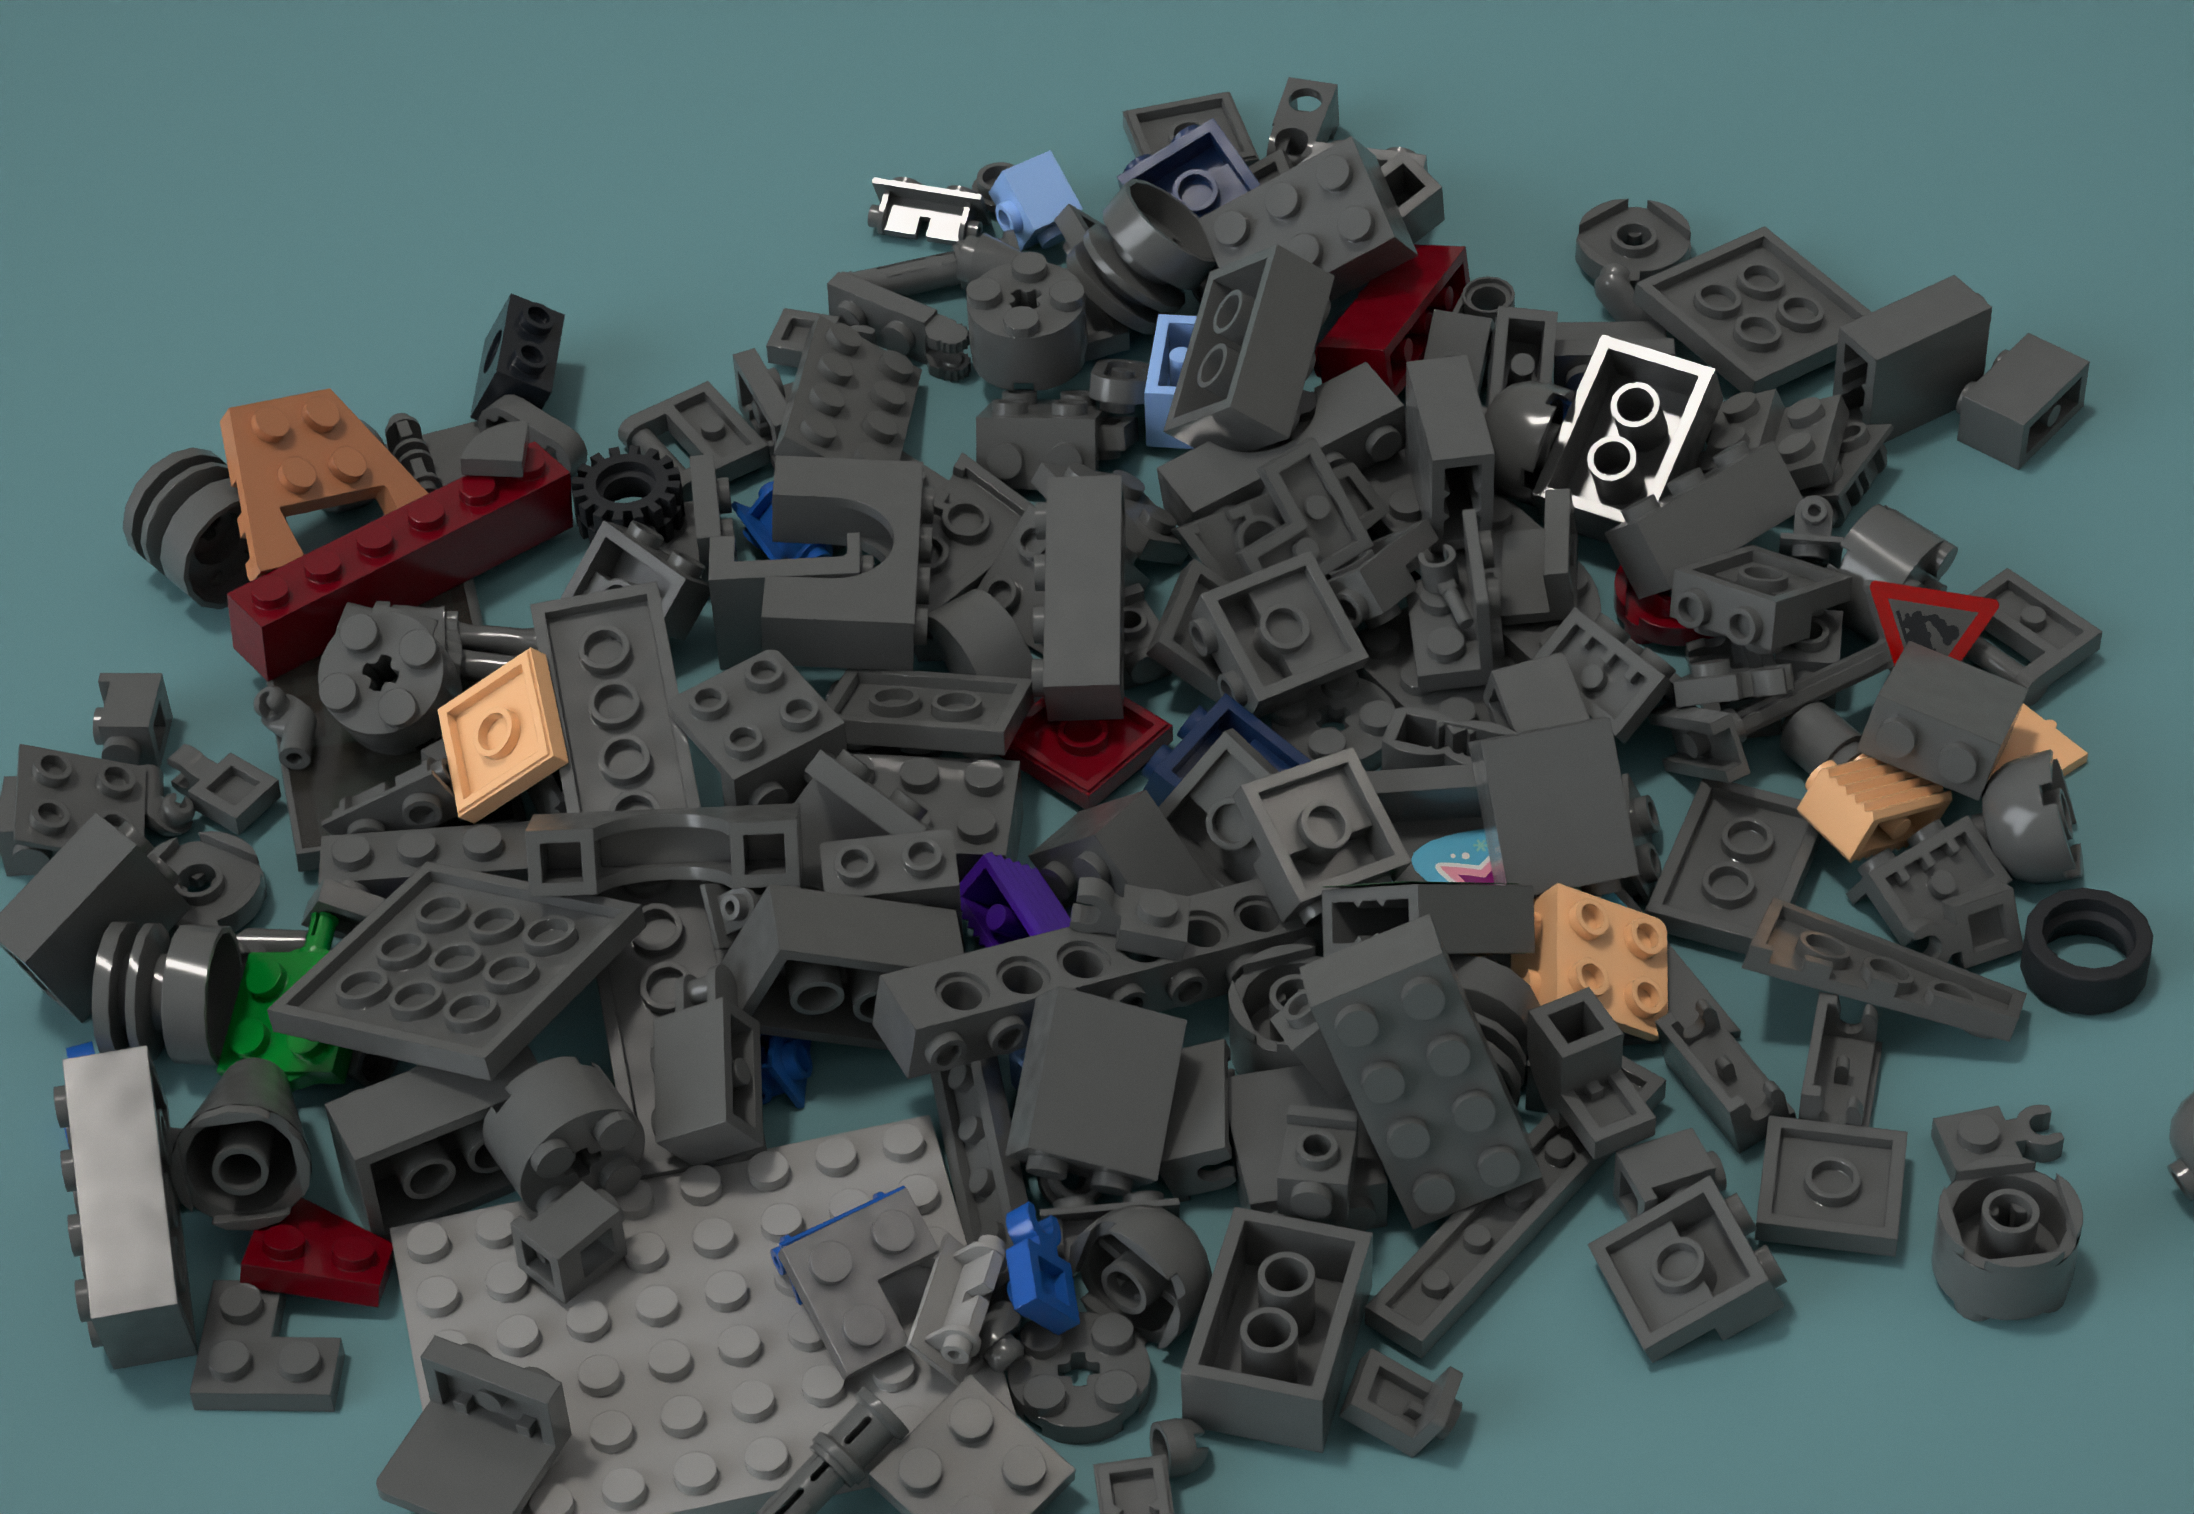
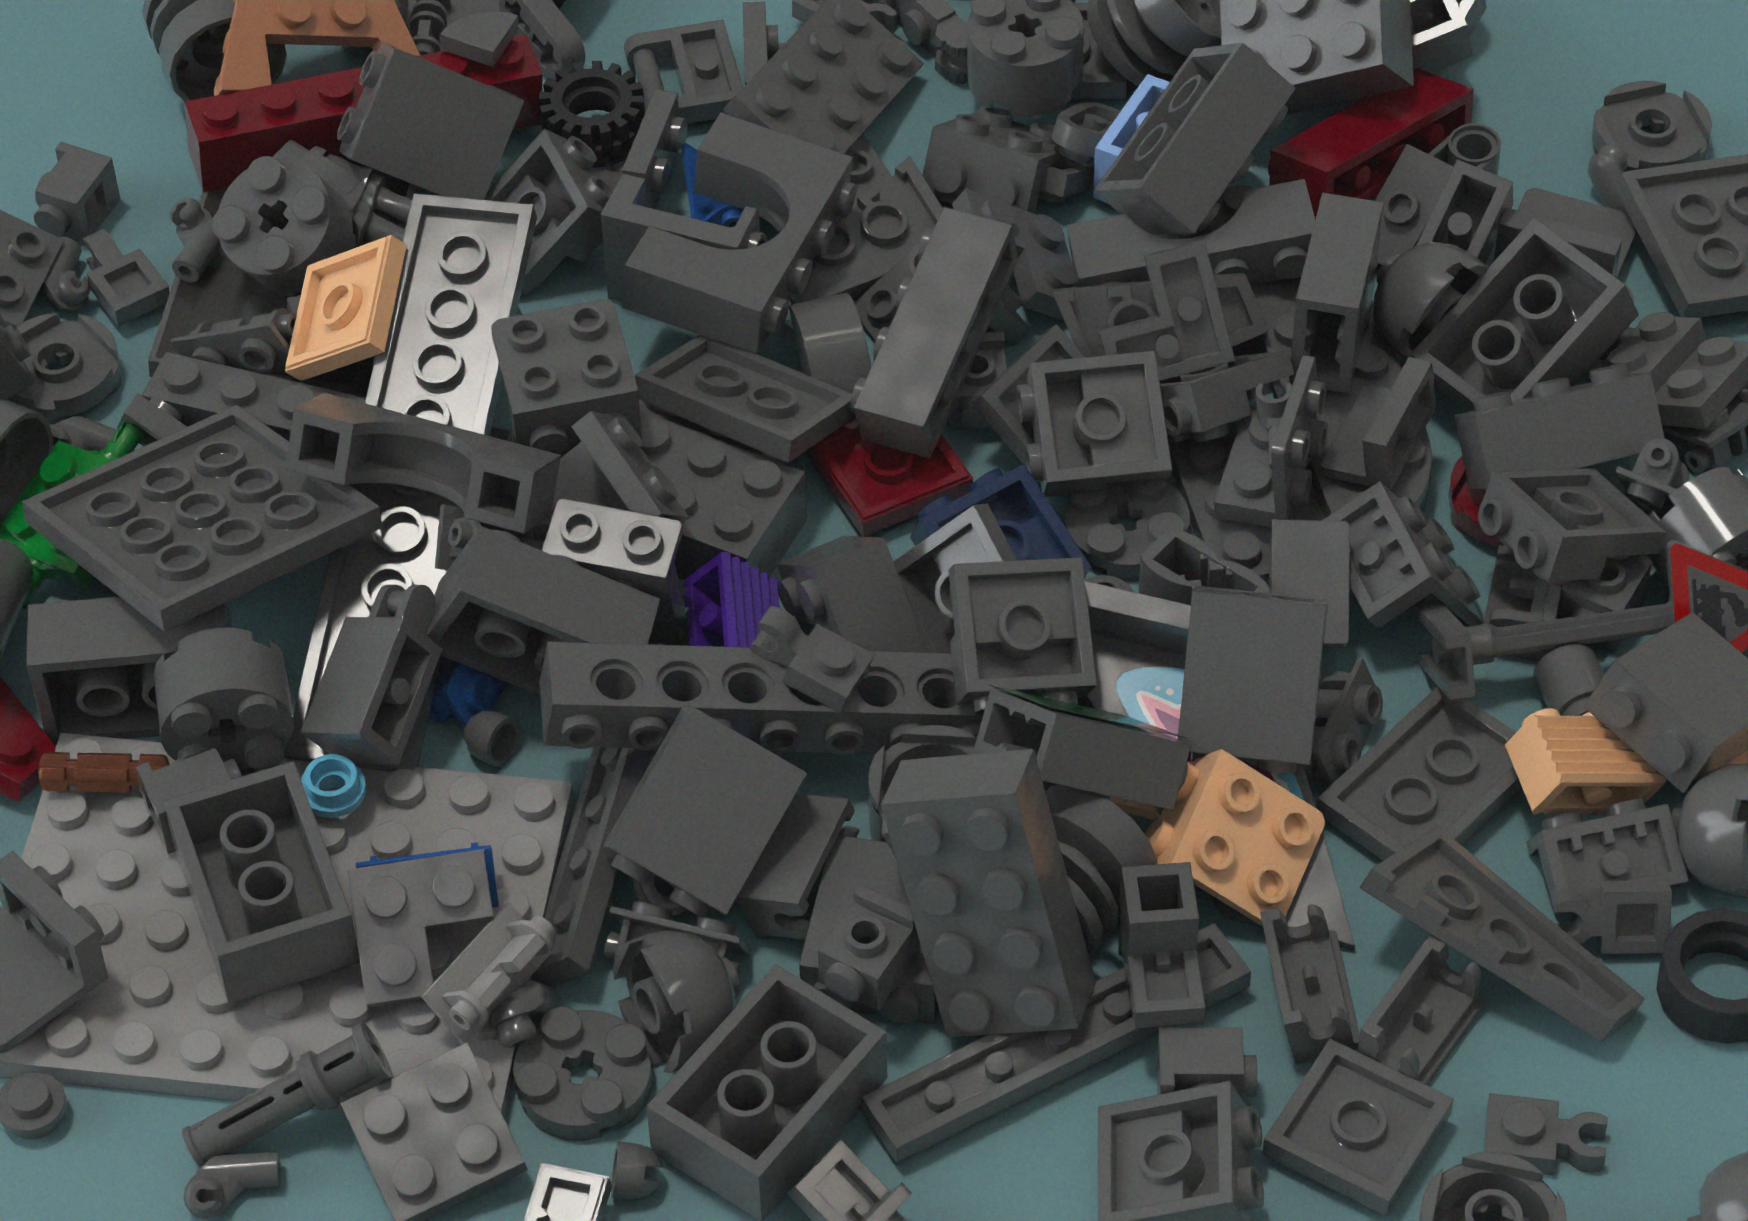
camera: 20 degrees right, 5 degrees up
(457, 1248) = (94, 771): none -> copper axle
(482, 546) = (428, 124): none -> dark grey panel
(691, 1291) = (262, 882): none -> dark grey brick
(700, 1174) = (329, 773): none -> medium azure plate
(826, 1098) = (492, 737): none -> dark grey hinge
(1039, 1279) = (571, 970): blue plate -> none
(1716, 682) = (1487, 598): dark grey plate -> none

